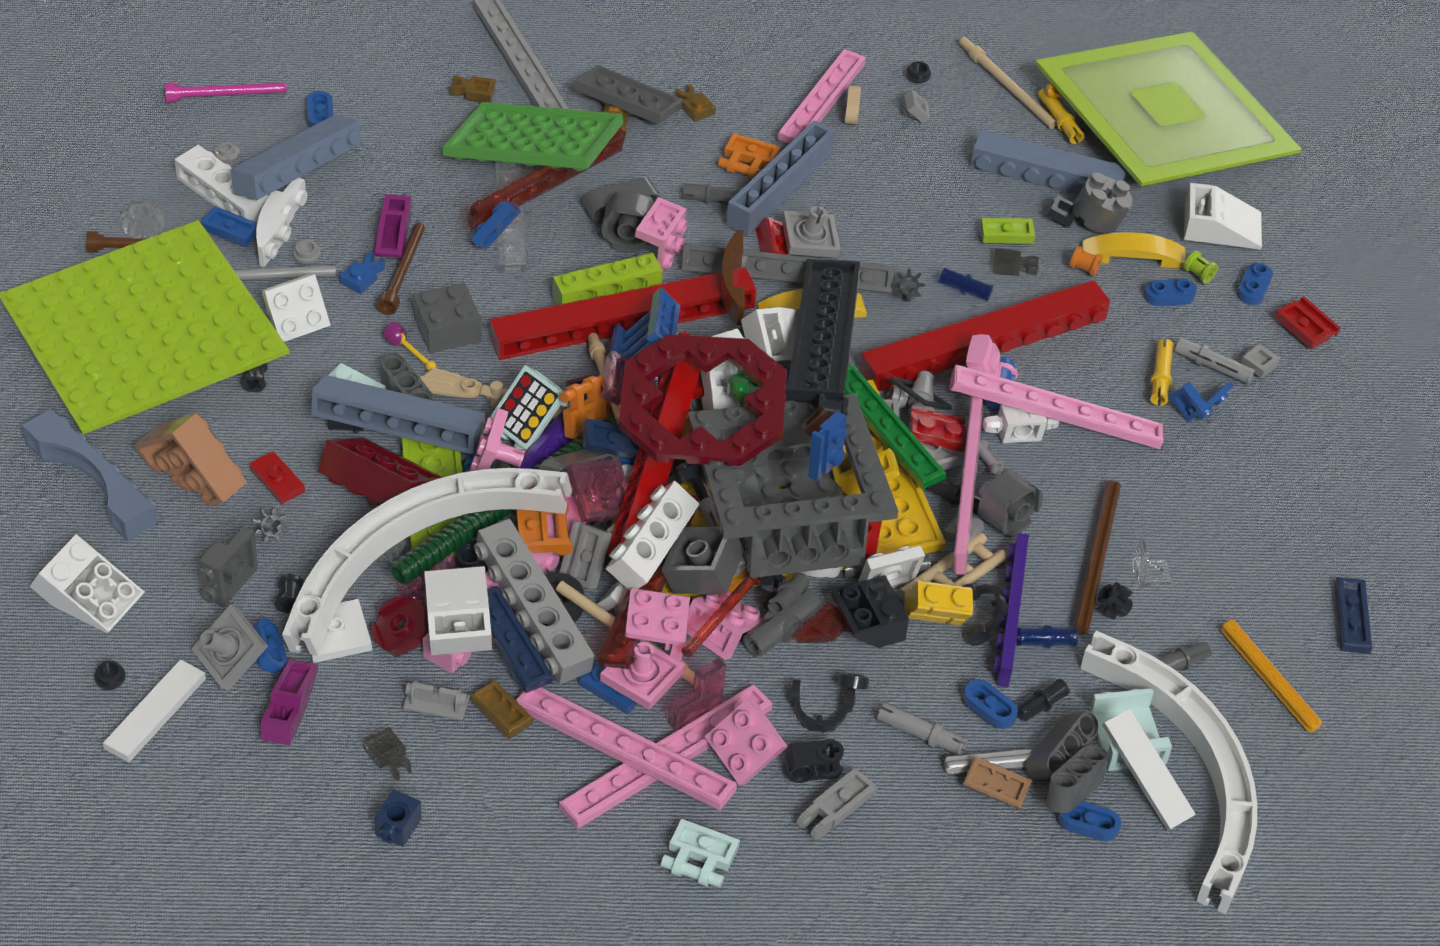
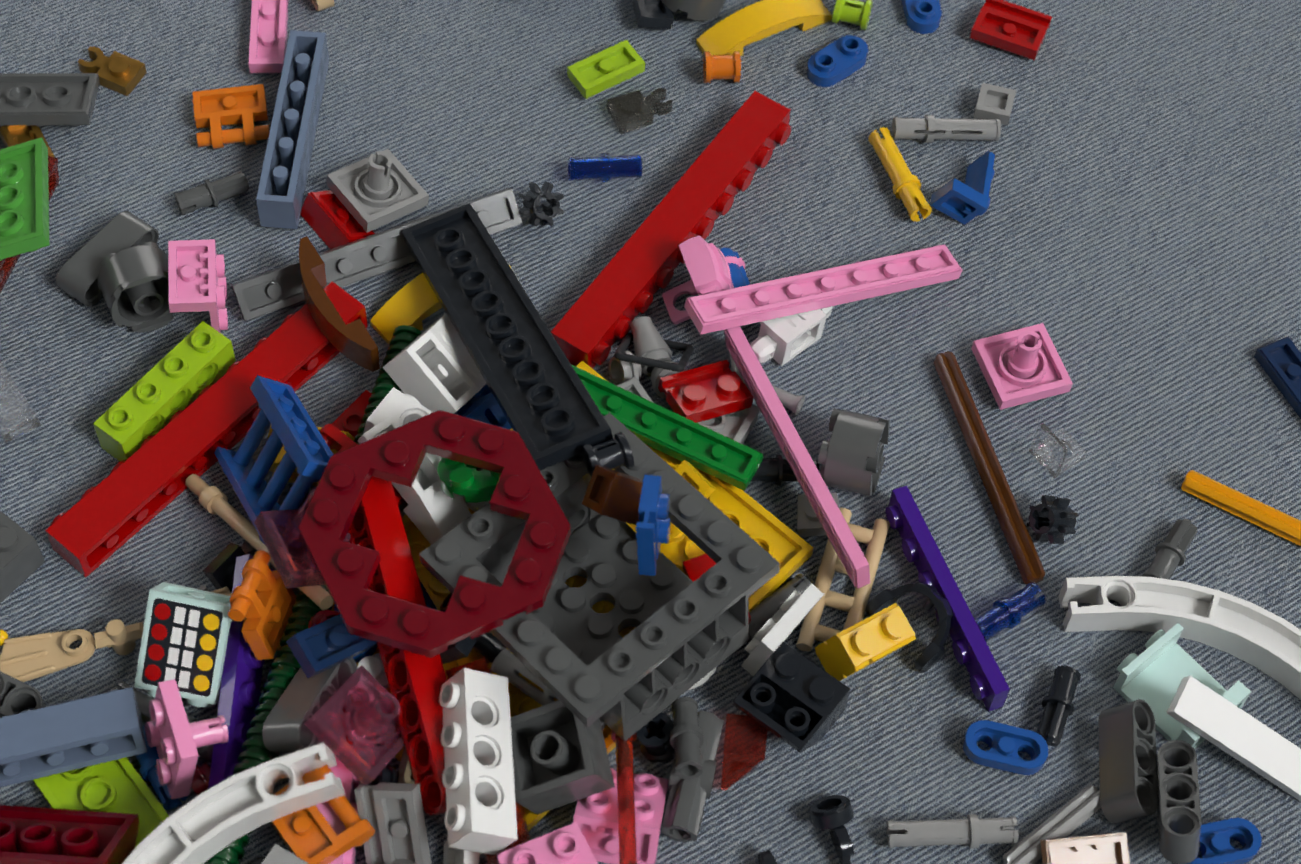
camera: 30 degrees left, 10 degrees up
(1162, 512) = (1021, 366): none -> bright pink plate

